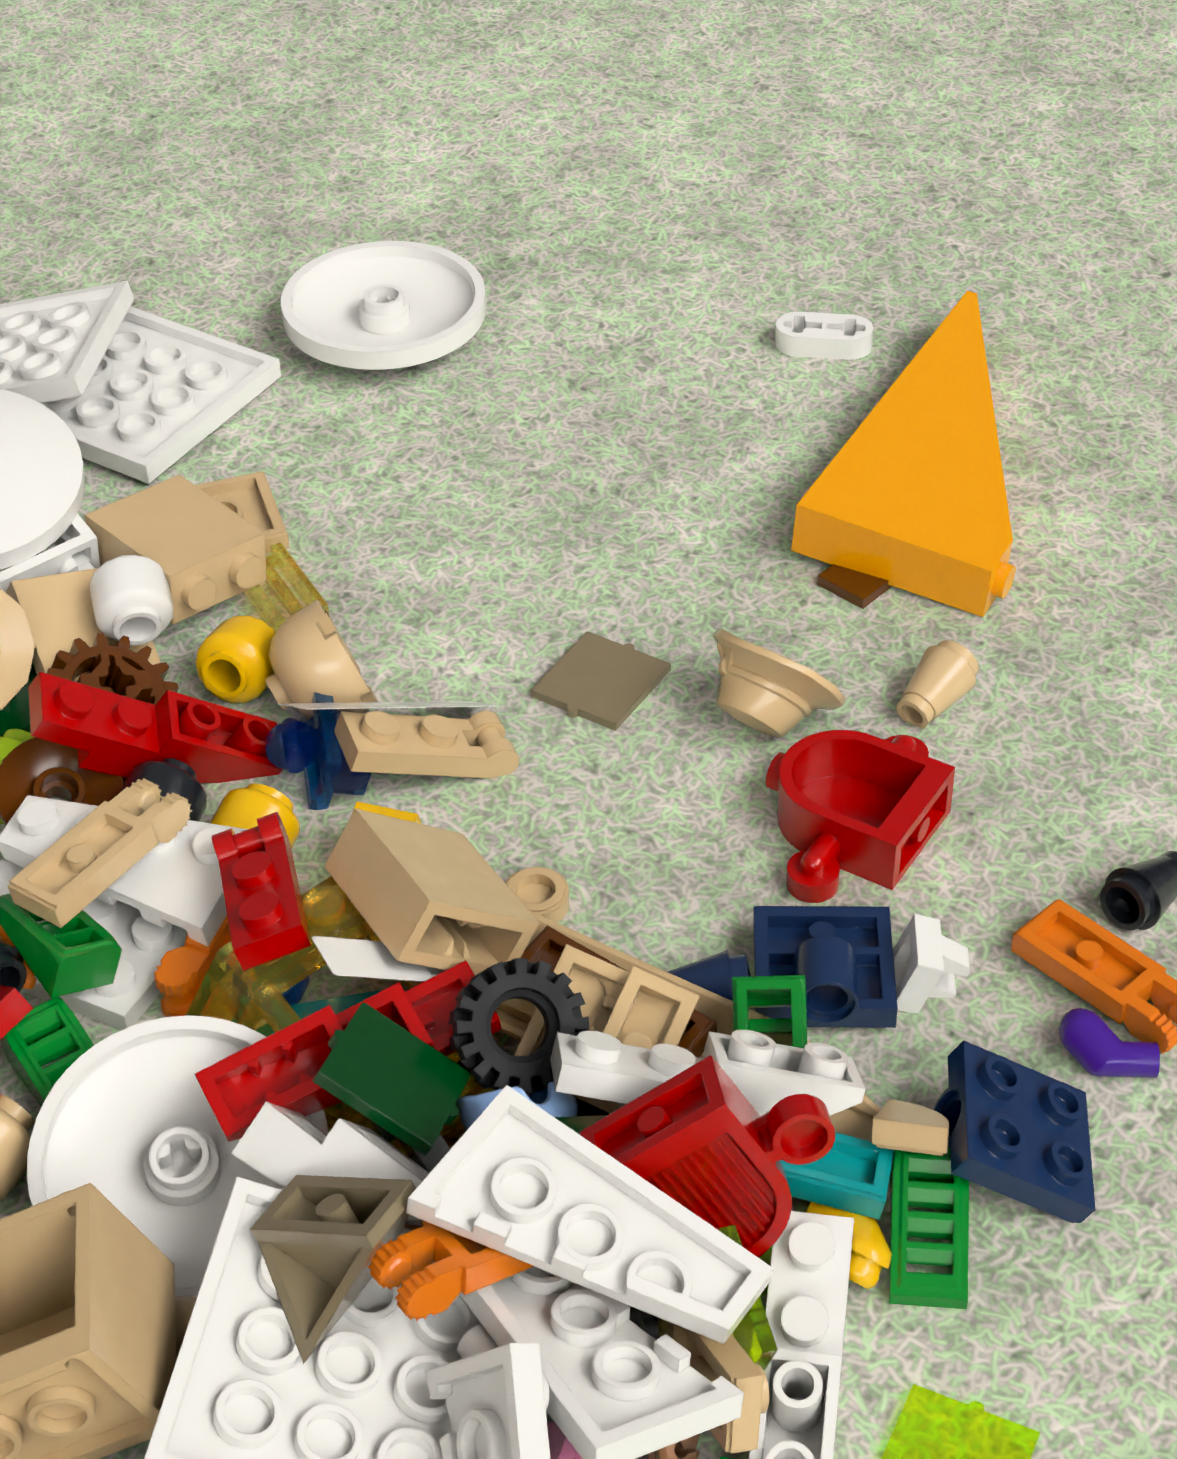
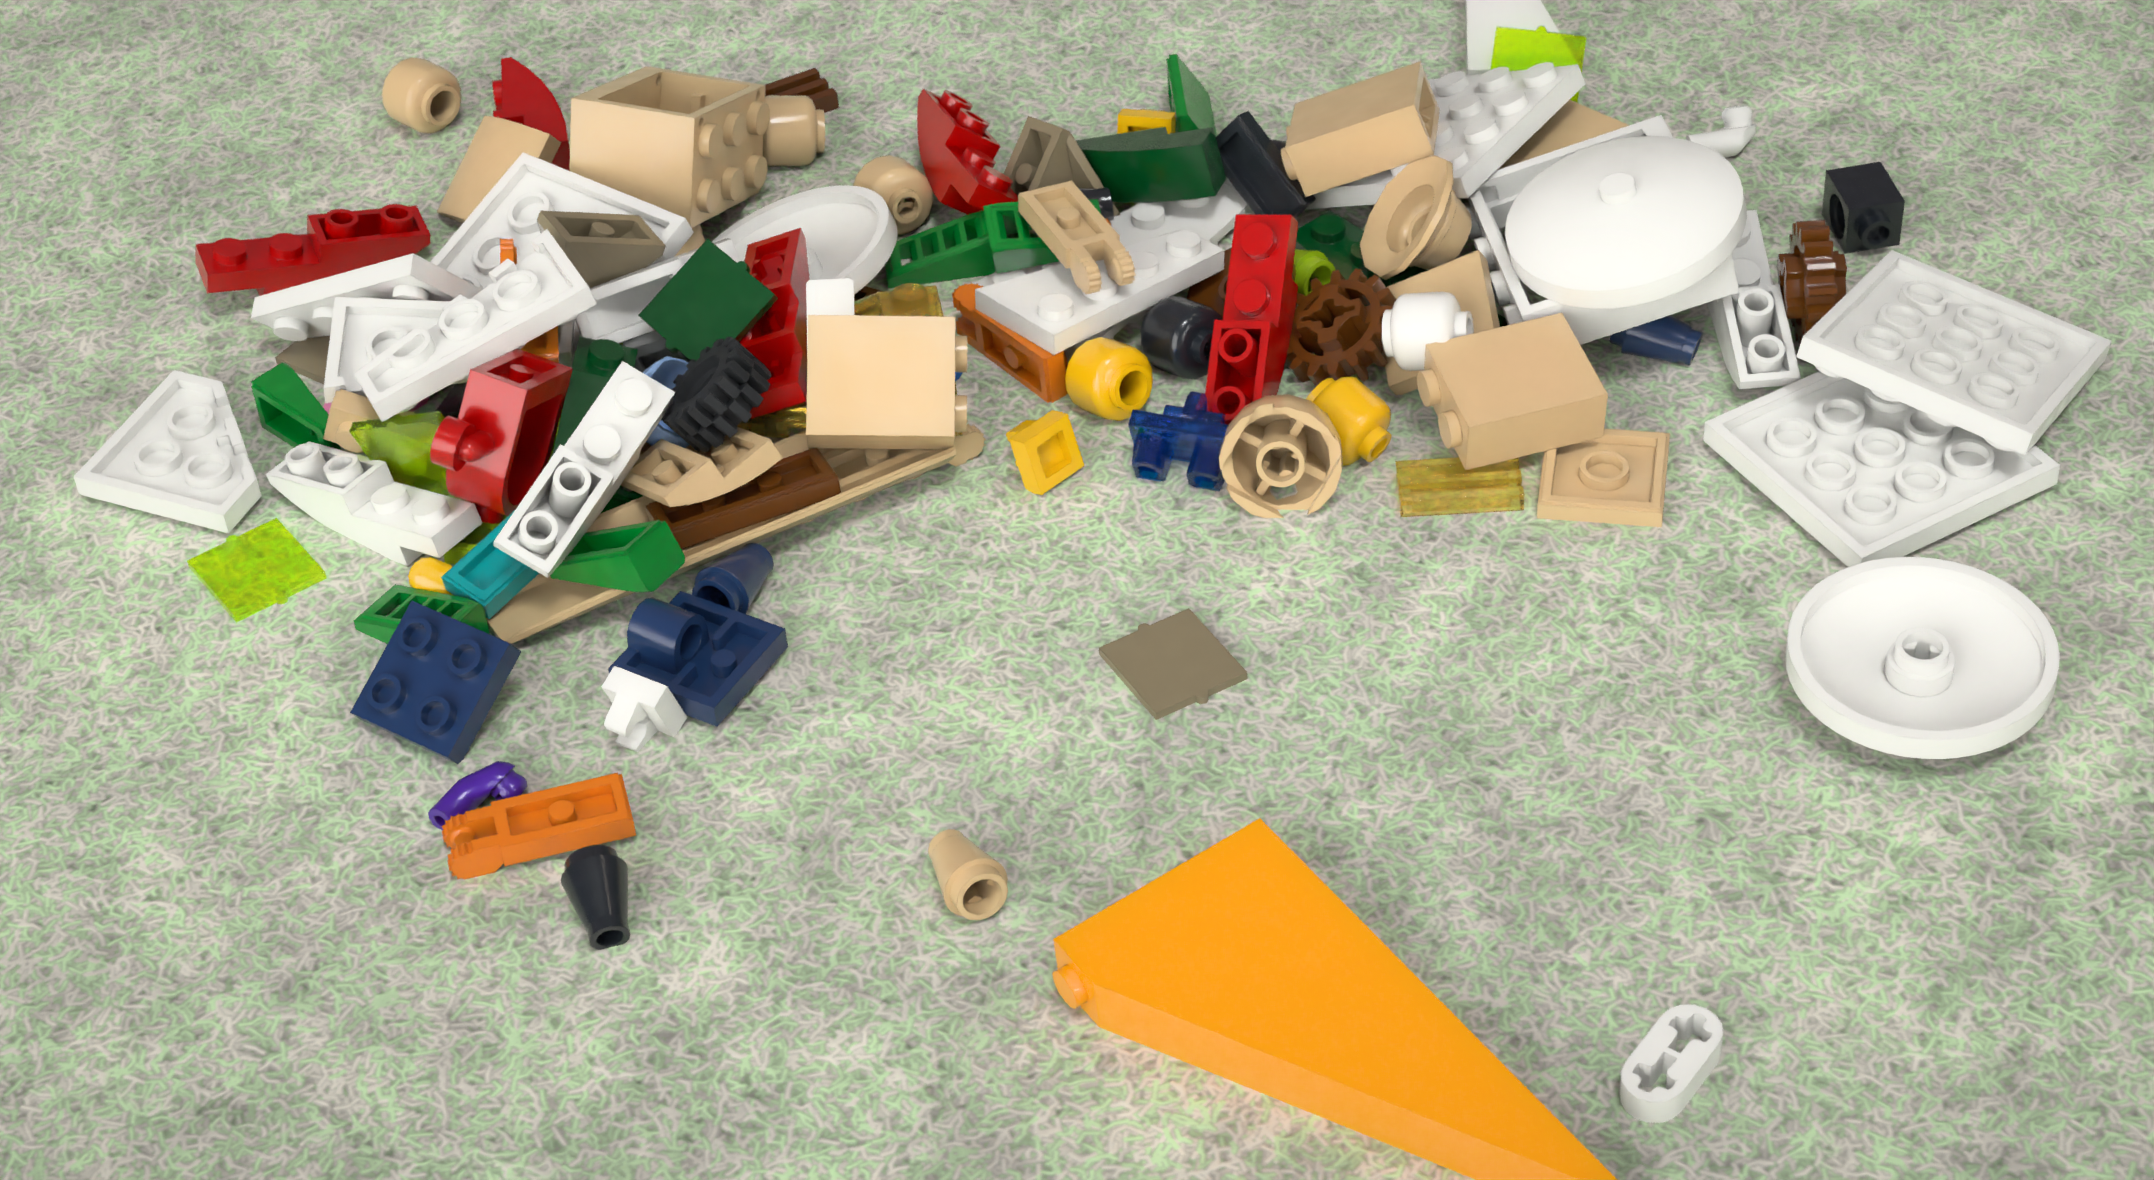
camera: 120 degrees right, 0 degrees up
(261, 892) = (953, 291): red plate -> none
(367, 705) = (1185, 472): white sticker -> none
(426, 744) = (1134, 493): tan plate -> none
(541, 891) = (924, 532): tan tile -> none
(767, 687) = (1040, 756): tan hat -> none
(856, 807) = (854, 750): red piece -> none
(910, 1128) = (482, 605): tan tile -> none

